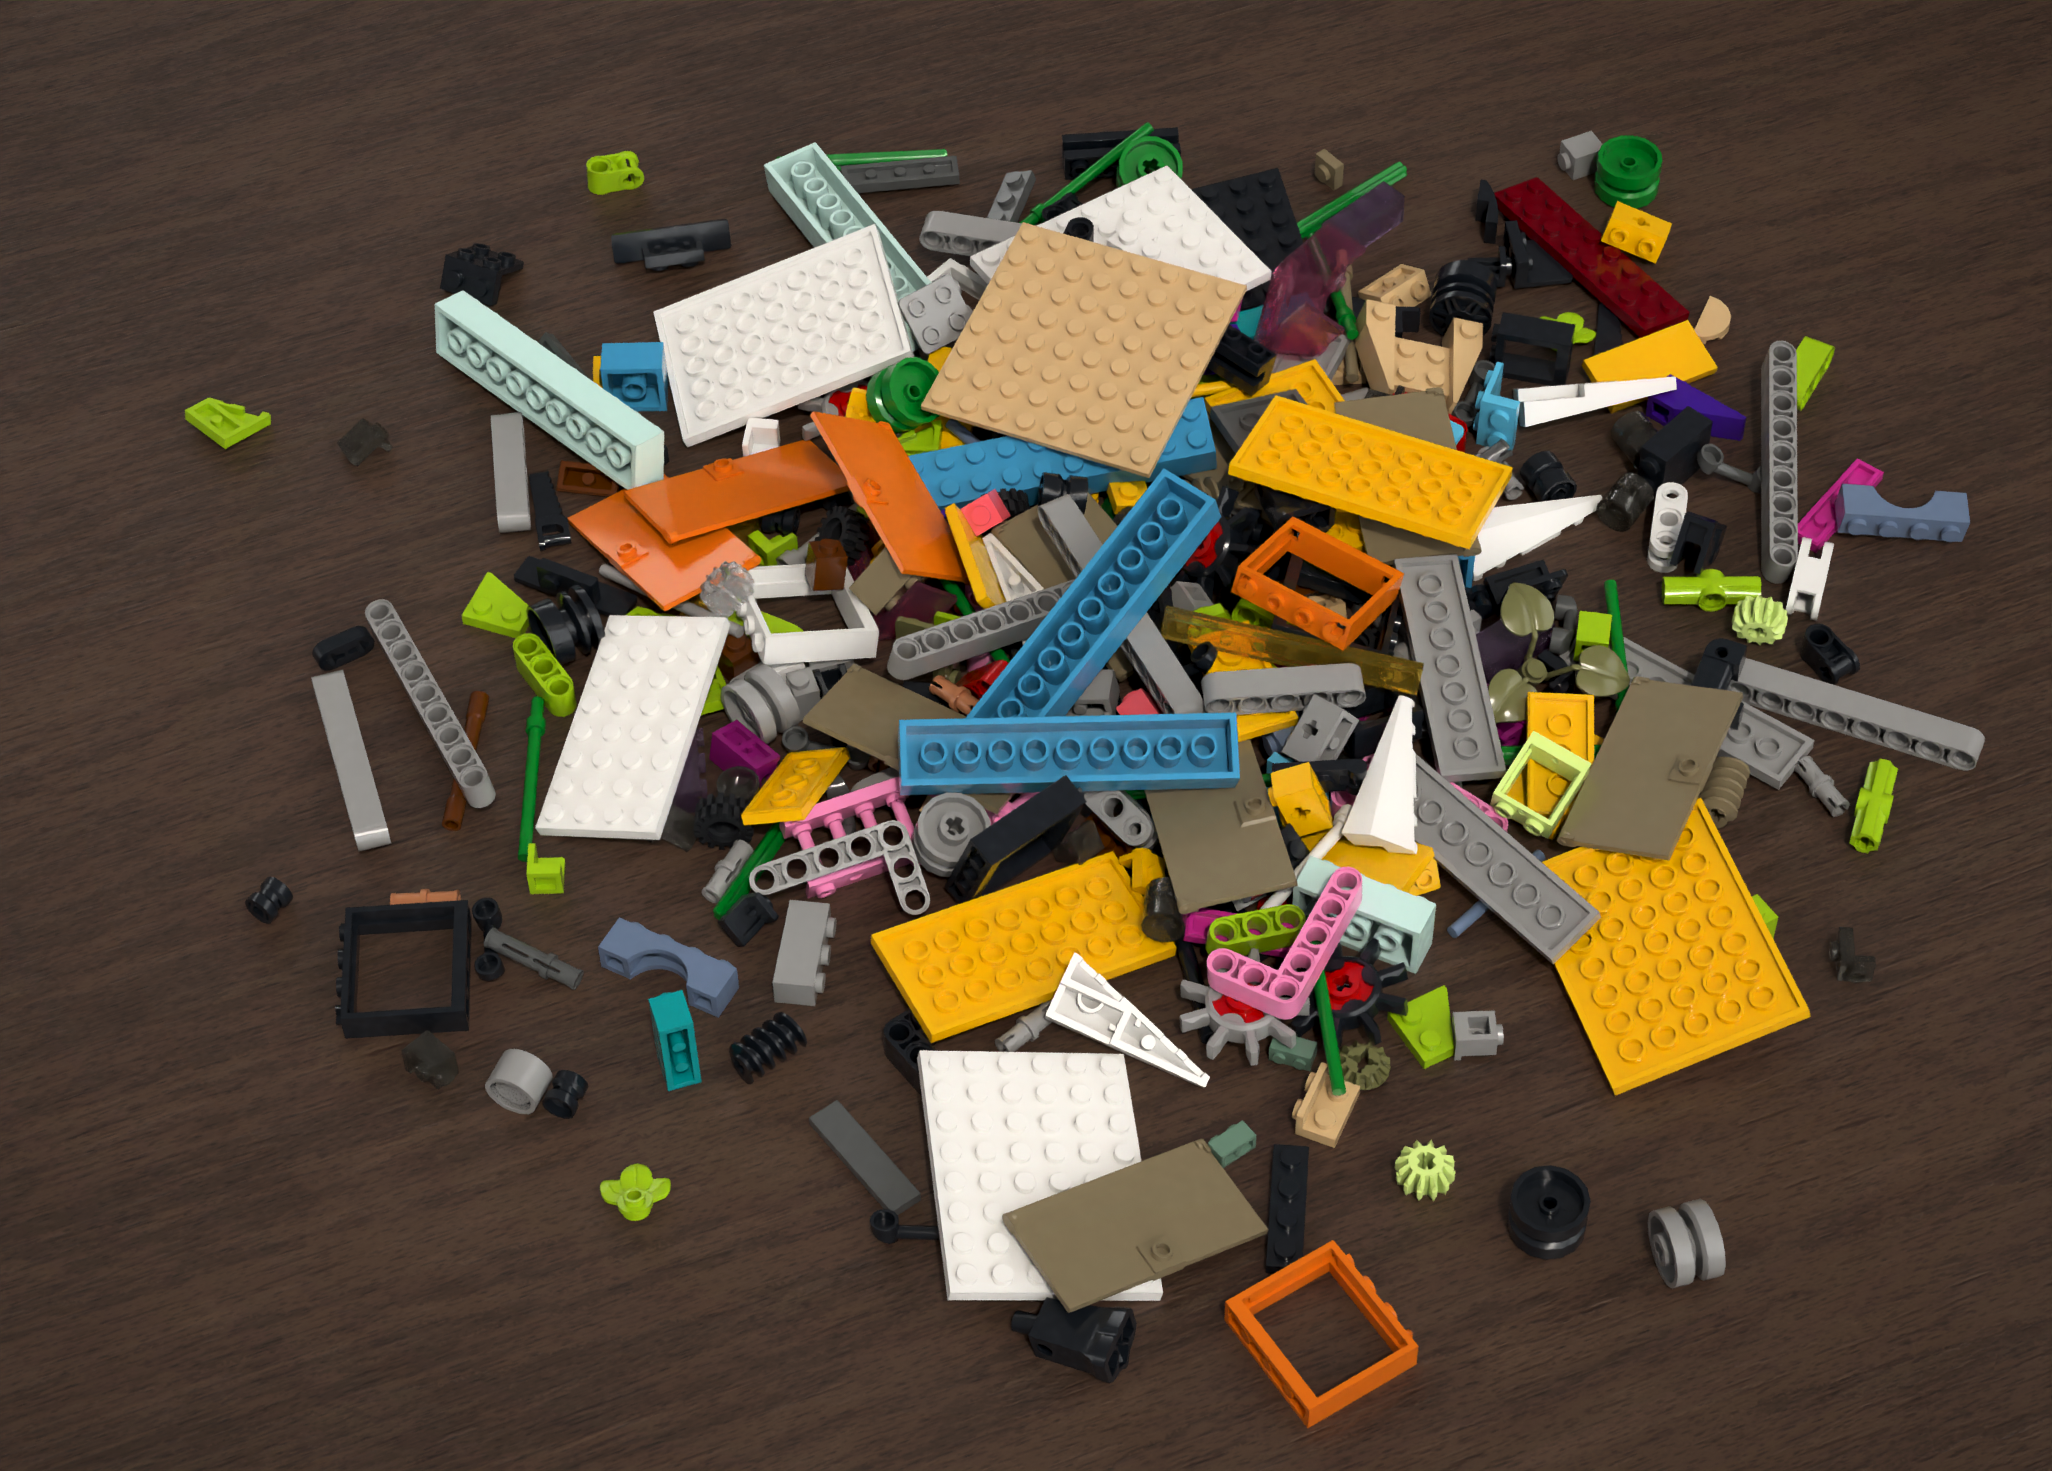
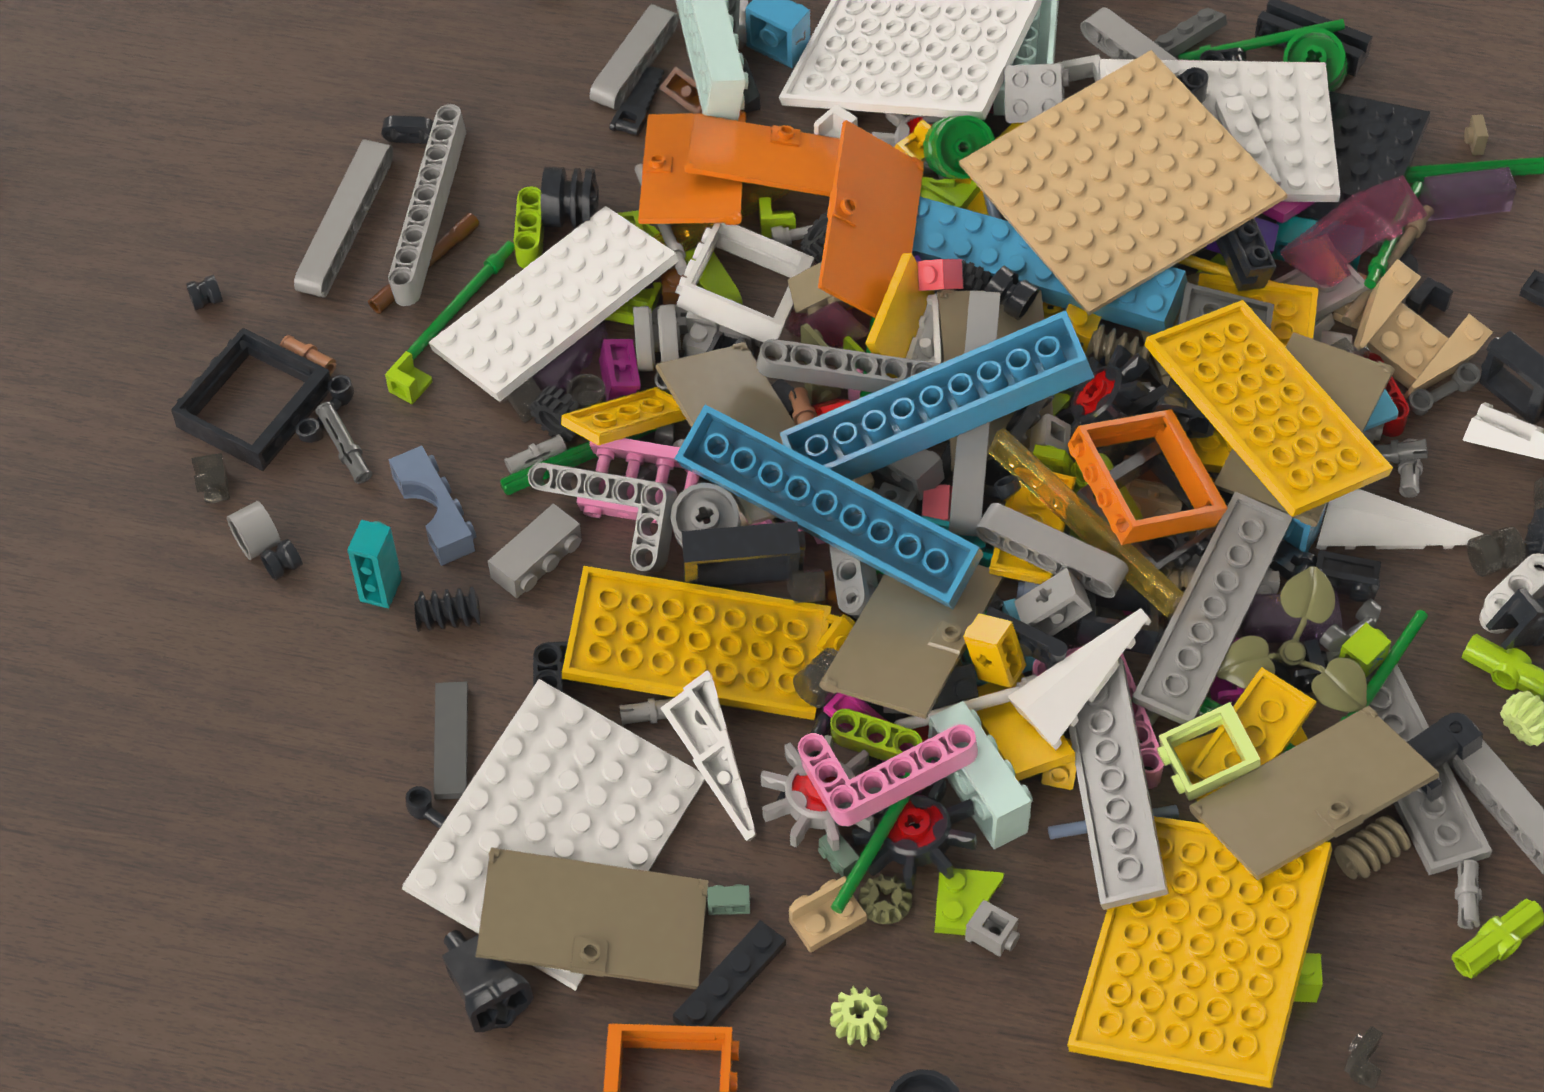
camera: 35 degrees right, 5 degrees up
(496, 609) = (538, 153): lime wing -> none
(555, 578) = (608, 171): black bracket -> none
(635, 1191) = (270, 664): lime plate -> none
(727, 589) = (691, 230): clear gear -> none
(747, 917) = (516, 500): black bracket -> none
(785, 521) = (804, 203): black wheel -> none
(826, 565) = (786, 252): reddish brown brick -> none
(1401, 287) = (1452, 266): tan bracket -> none
(1464, 292) = (1497, 300): black wheel -> none
(1497, 414) = (1441, 410): medium azure bracket -> none
(1547, 477) = (1445, 494): black wheel -> none

